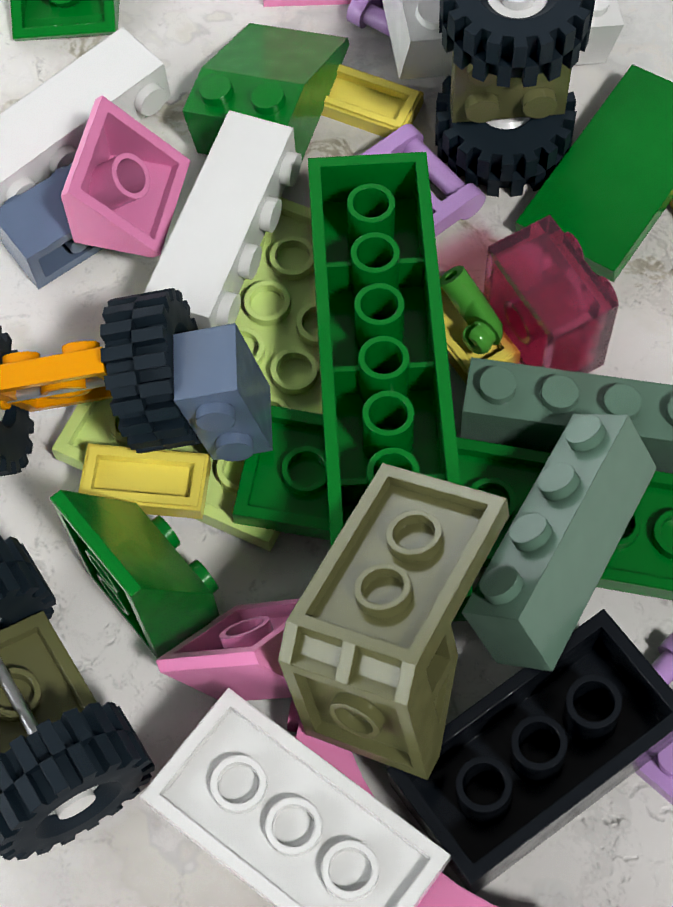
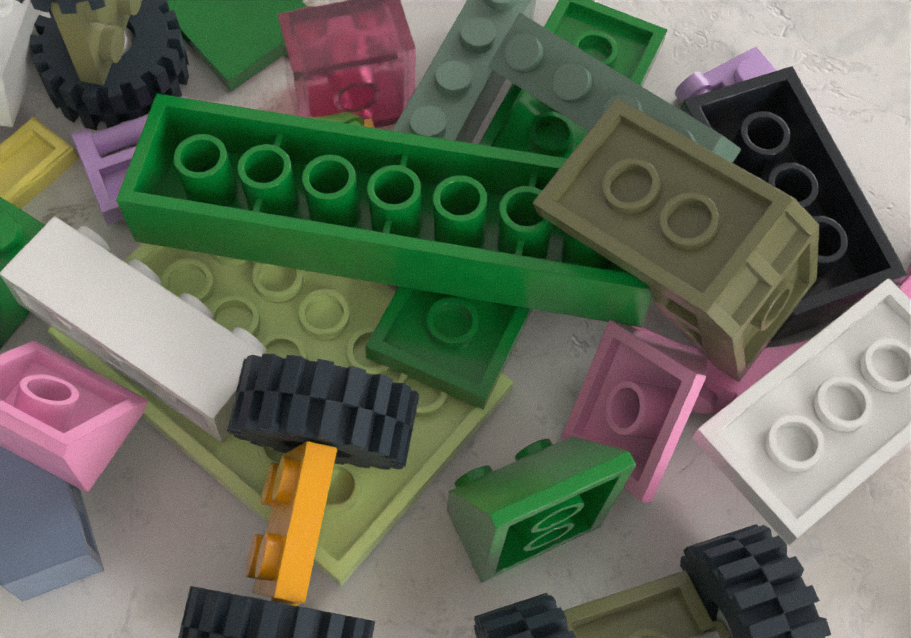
camera: 85 degrees left, 0 degrees up
(156, 480) = (412, 499): light yellow tile -> none
(222, 392) = (377, 339): sand blue brick -> none

